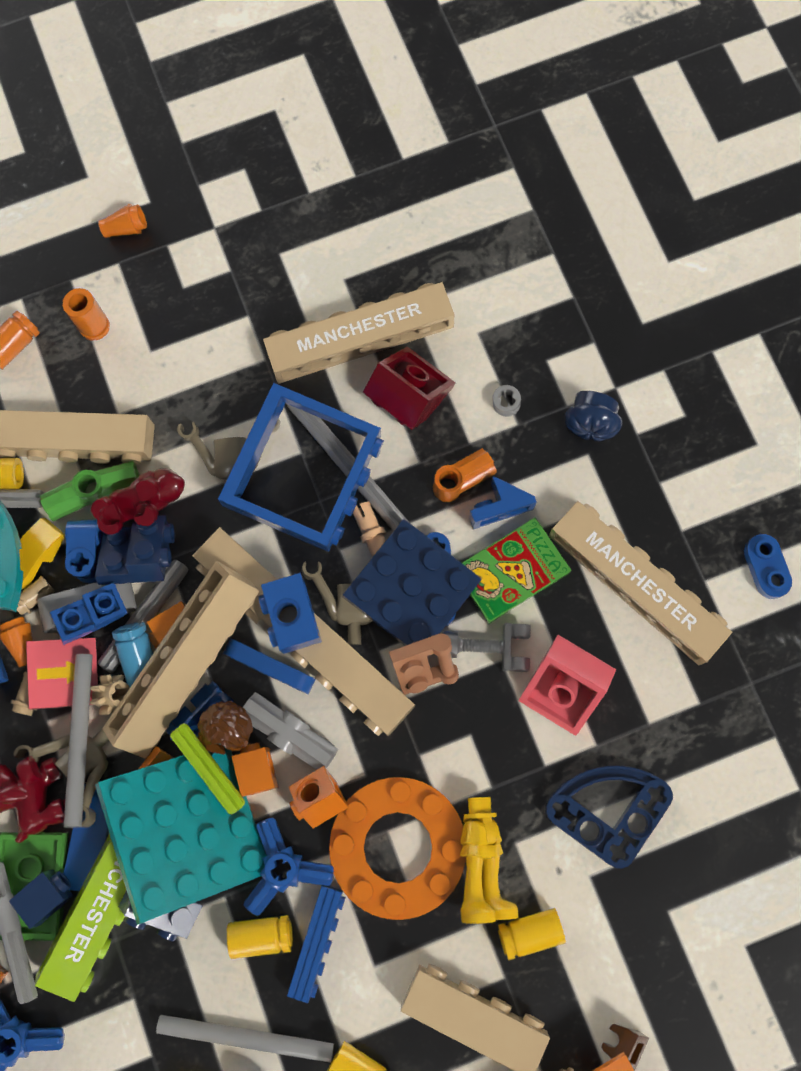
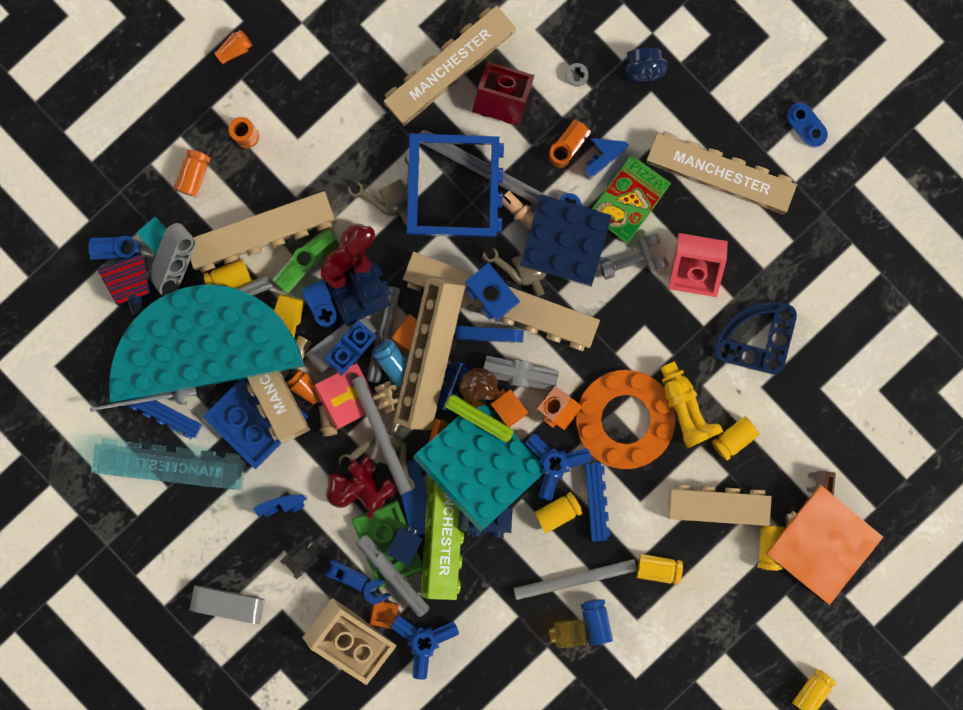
camera: 30 degrees left, 10 degrees up
(413, 665) = (589, 295): nougat plate -> none

